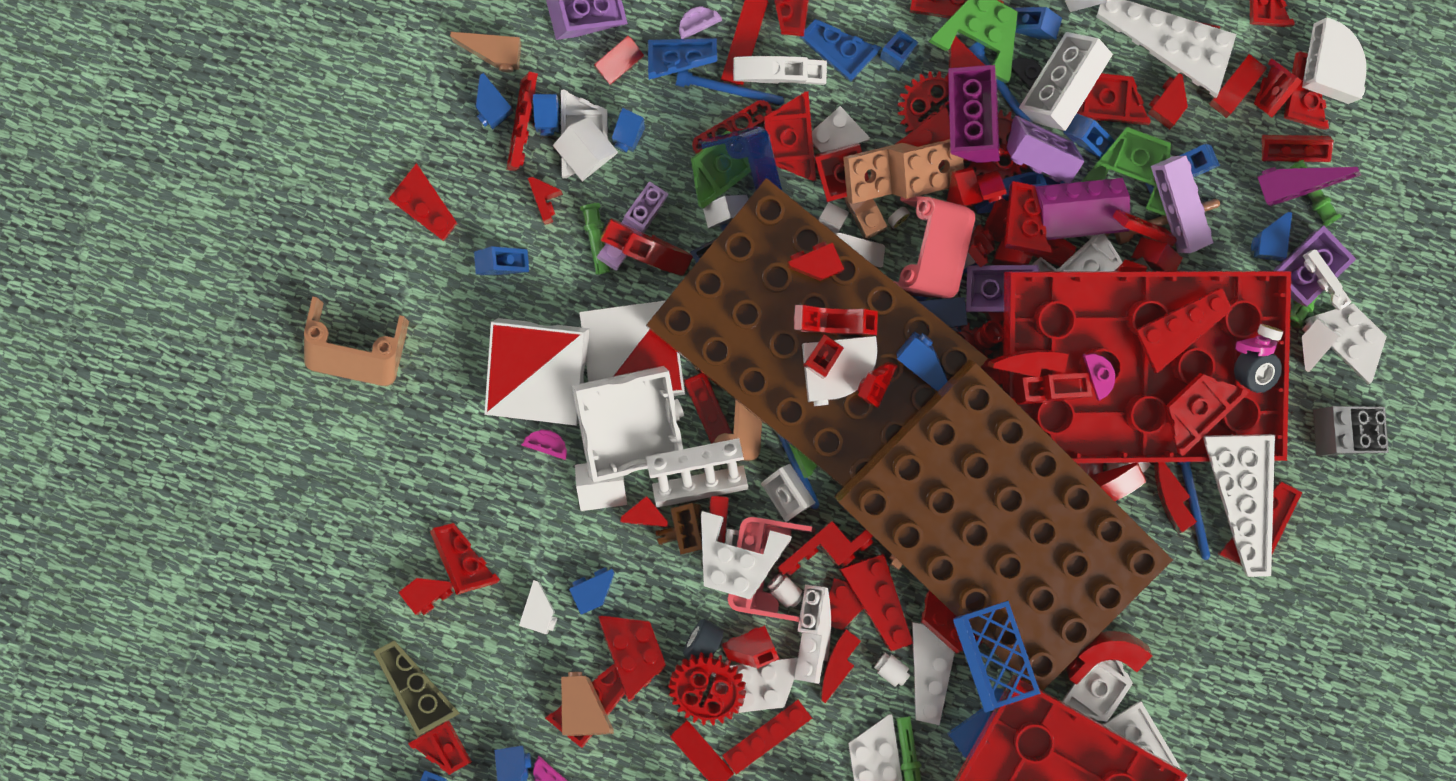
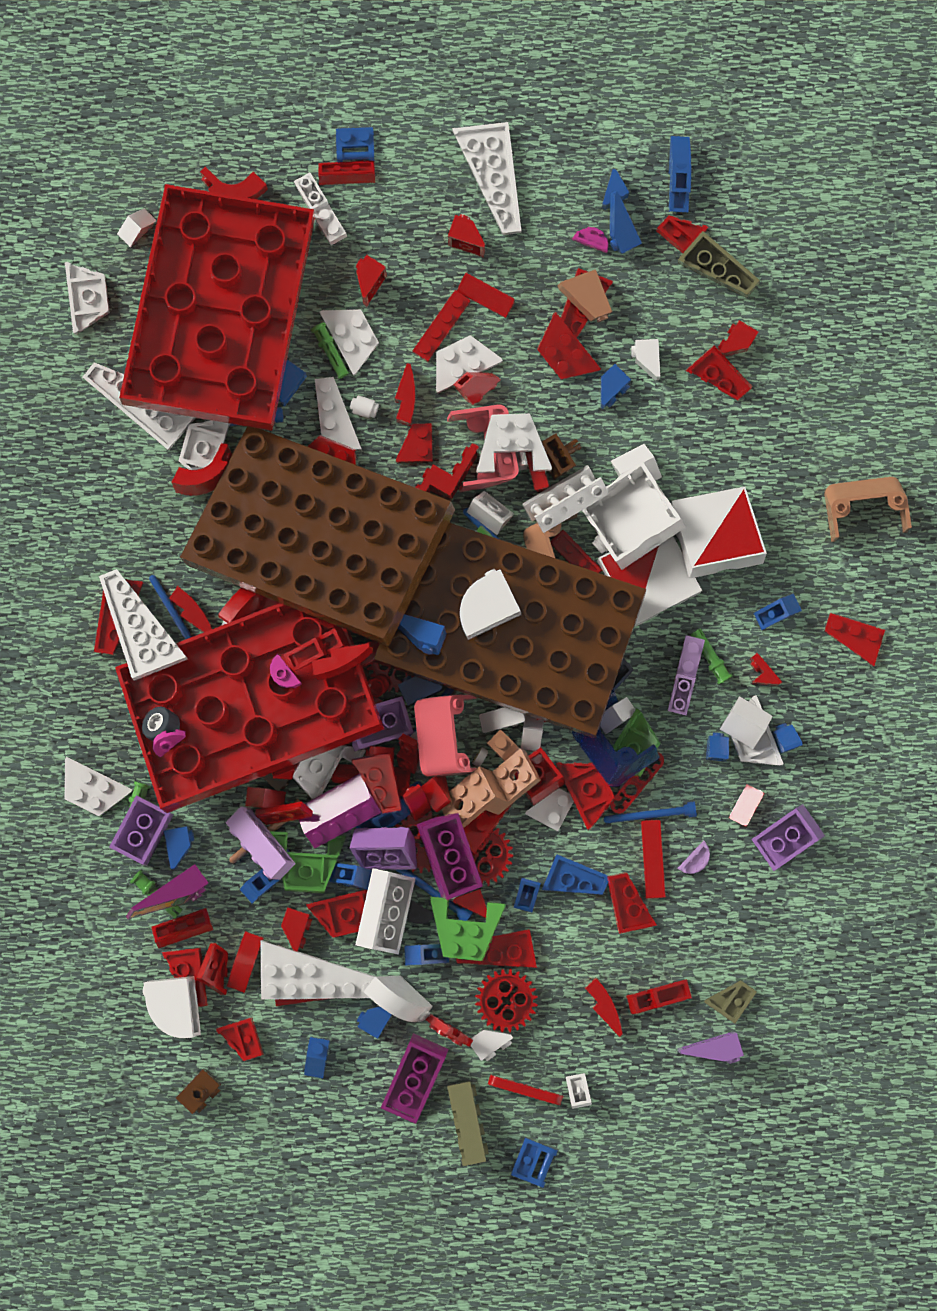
camera: 165 degrees right, 0 degrees up
(490, 104) = (834, 733): blue slope -> none
(496, 50) = (846, 777): nougat slope -> none
(522, 117) = (805, 731): red wing -> none
(546, 442) = (689, 484): dark pink plate -> none
(644, 514) = (593, 456): red slope -> none
(646, 248) = (668, 656): red slope -> none
(679, 55) = (700, 825): blue wing -> none
(704, 639) = (514, 376): black wheel -> none
(727, 696) = (484, 342): red gear -> none
(780, 69) = (615, 840): white slope -> none
(785, 591) = (465, 436): white brick -> none
(816, 633) = (431, 412): white slope -> none
(819, 263) = (530, 677): red slope -> none
(823, 356) = (501, 603): red slope -> none
(835, 321) = (502, 638): red arch -> none
(876, 383) = (454, 598): red wing -> none
(877, 594) = (393, 456): red wing -> none
(976, 663) = (307, 427): blue fence -> none
(1179, 329) = (234, 729): red wing -> none
(1200, 408) = (196, 678): red wing -> none
(1270, 332) = (161, 755): white tile -> none
(1317, 341) = (119, 772): white slope -> none
(1327, 279) = (127, 818): white hinge -> none
(1350, 430) = (70, 713): dark grey slope -> none

